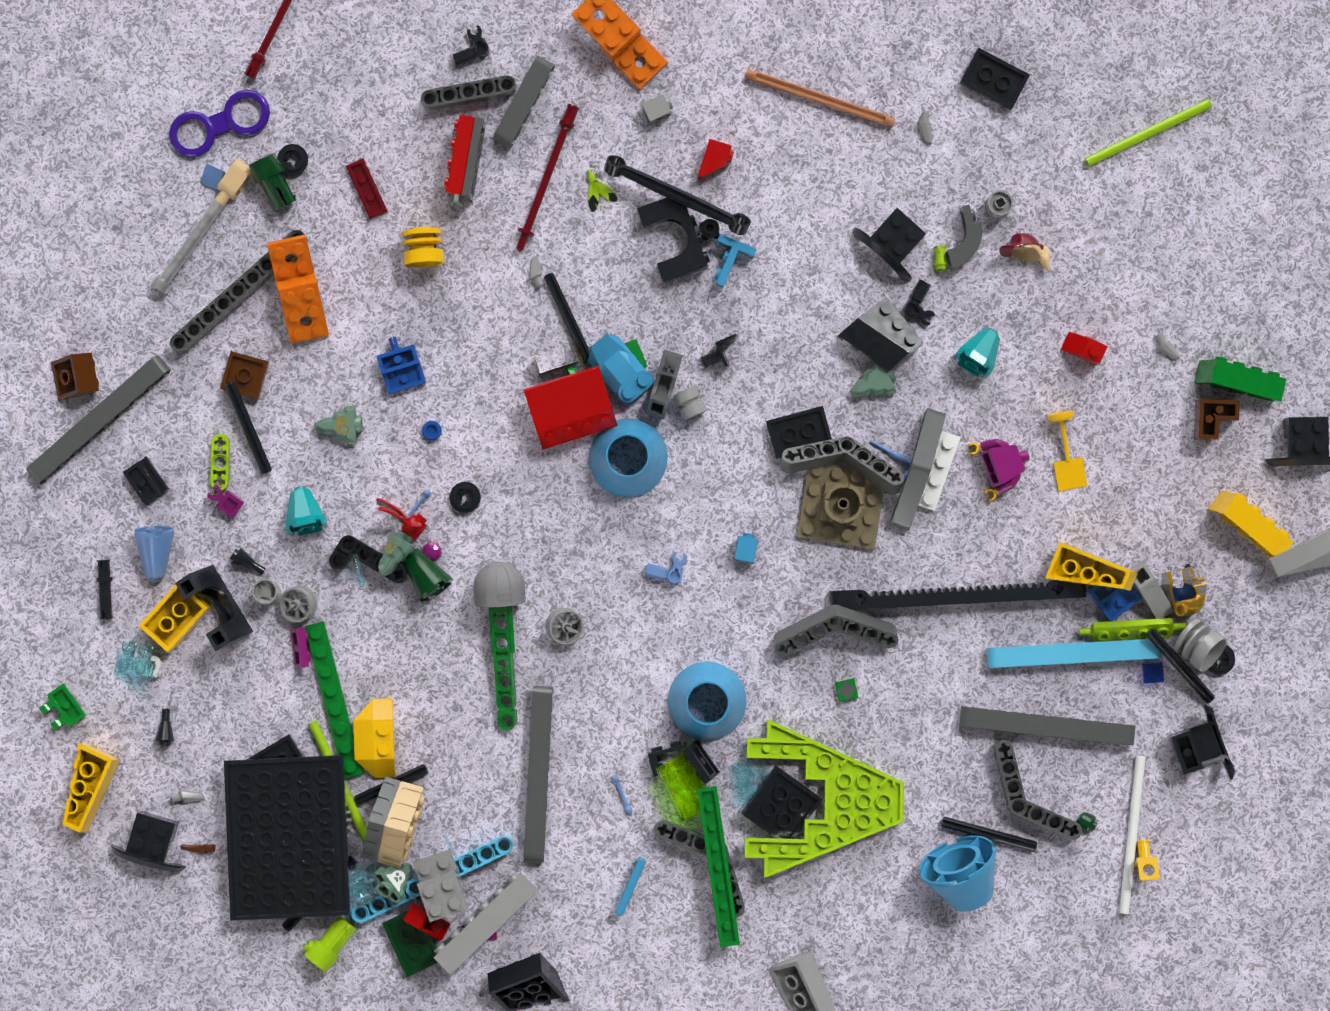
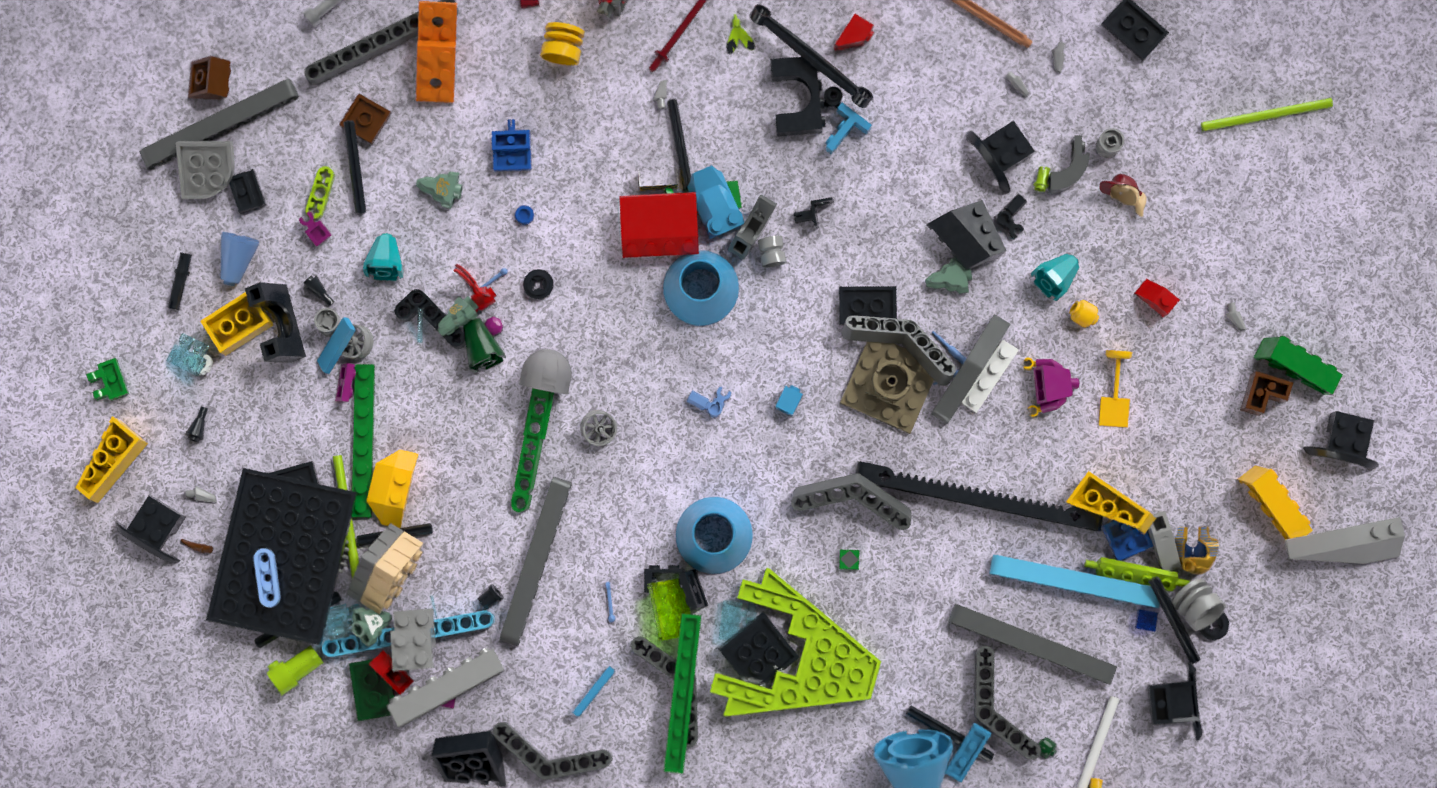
camera: 15 degrees right, 5 degrees down
(97, 469) = (204, 167): none -> light grey plate
(272, 855) = (263, 569): none -> light blue plate
(281, 613) = (336, 345): none -> dark azure tile
(503, 821) = (490, 597): none -> black bush
(598, 966) = (541, 760): none -> dark grey beam
(891, 166) = (1018, 84): none -> light grey bar
(1011, 848) = (967, 752): none -> dark azure tile
(1016, 383) = (1084, 313): none -> yellow head

